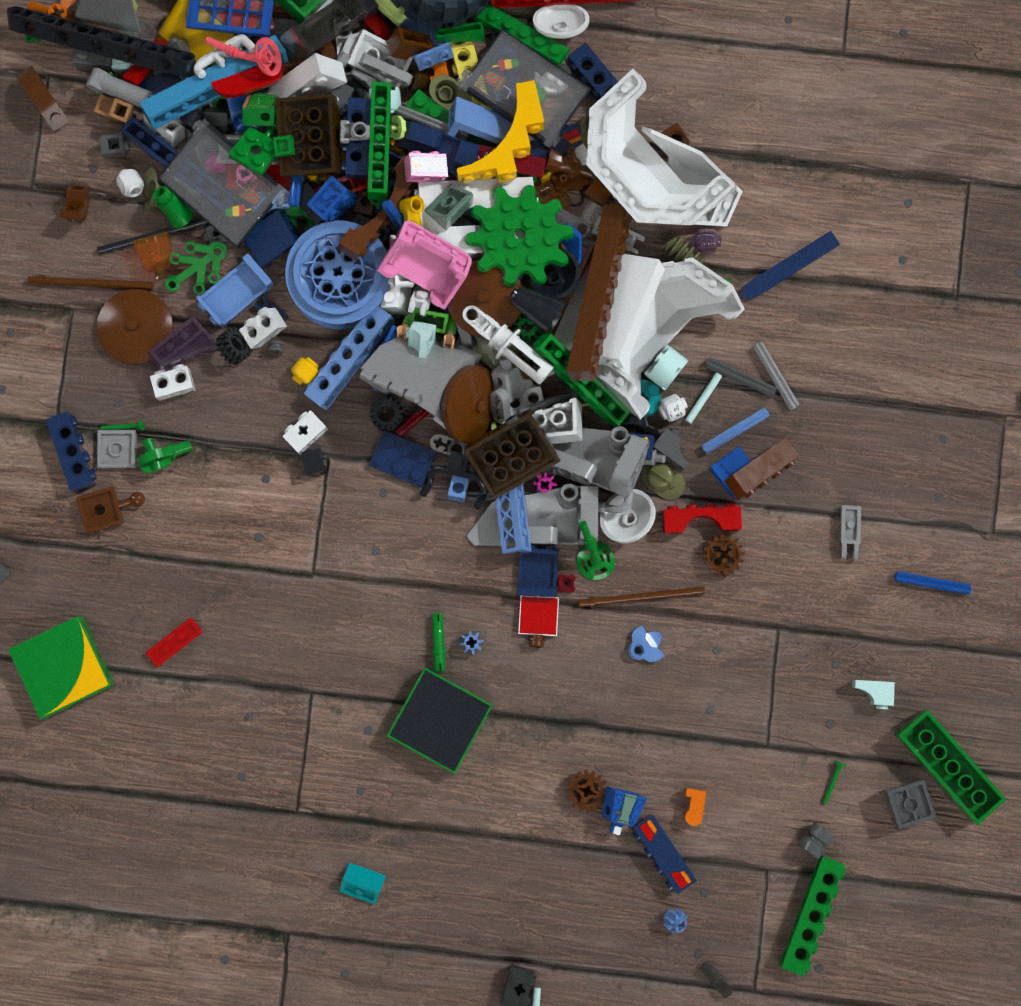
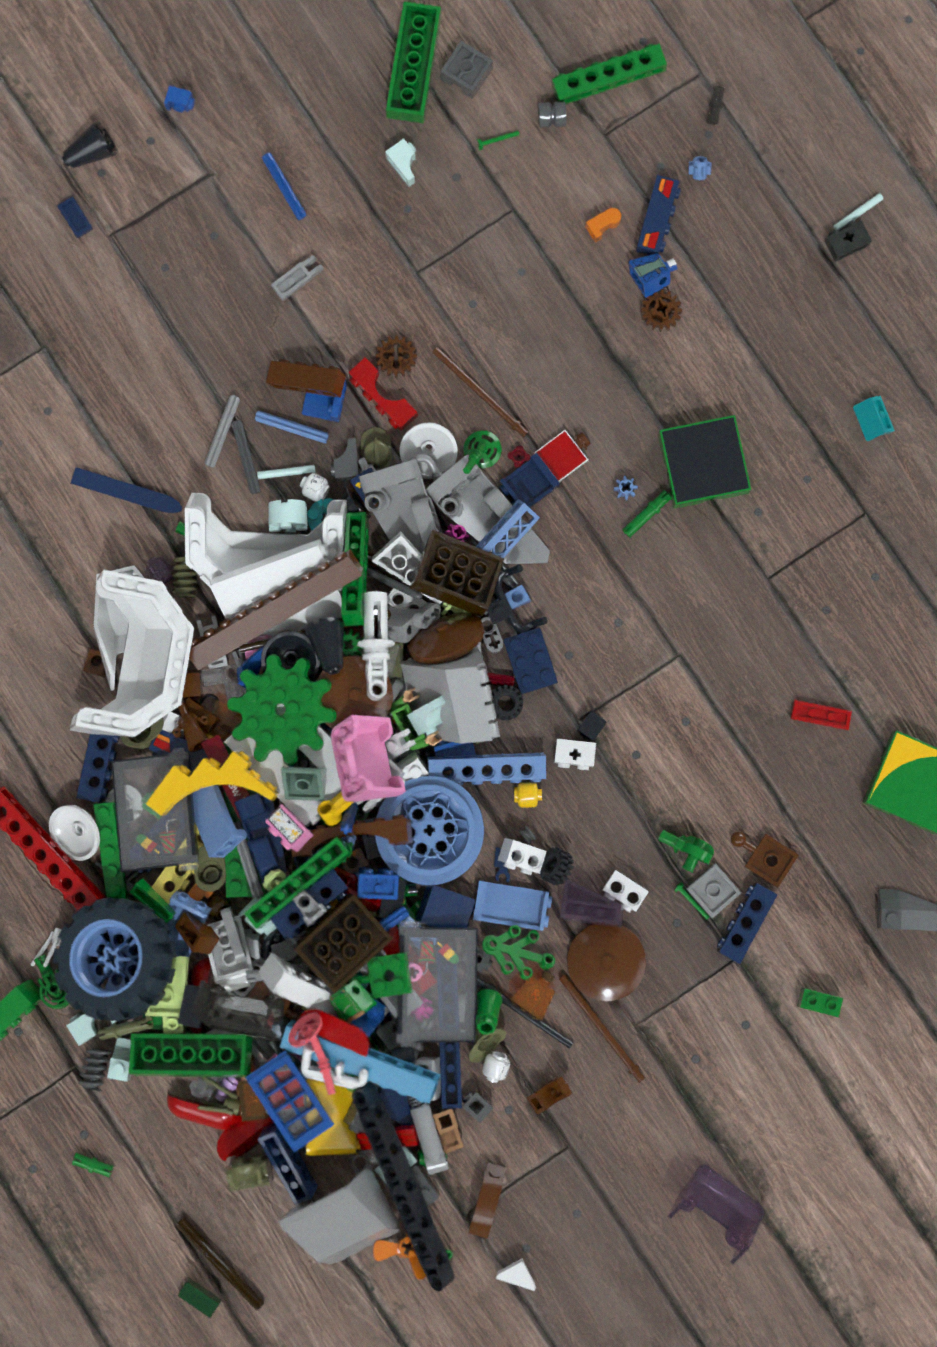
camera: 130 degrees left, 0 degrees up
(283, 146) = (367, 954): green tile -> none
(647, 643) = (511, 358): medium blue plate -> none

